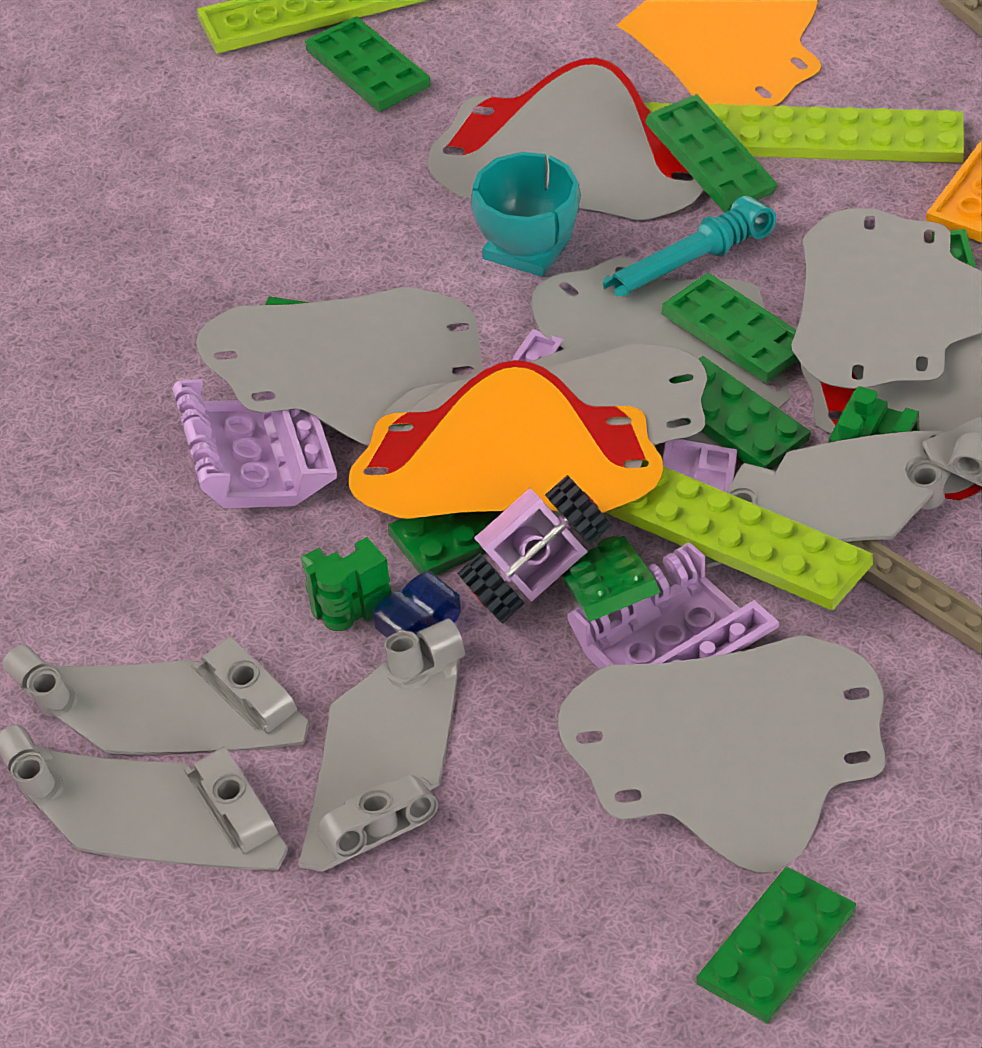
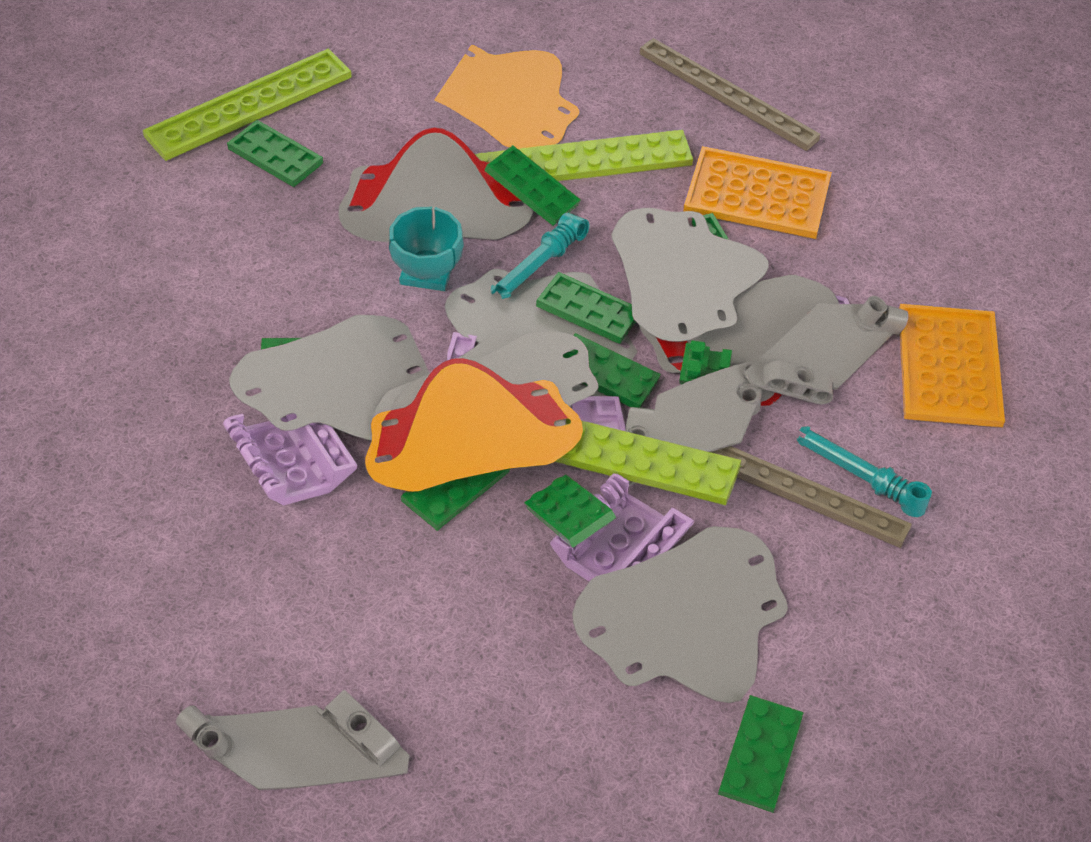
camera: 20 degrees left, 5 degrees up
(165, 704) = (286, 662): light grey panel -> none
(347, 586) = (390, 551): green hips -> none
(385, 748) = (453, 667): light grey panel -> none
(417, 606) = (443, 557): clear blue brick -> none
(532, 546) = (513, 496): brick -> none

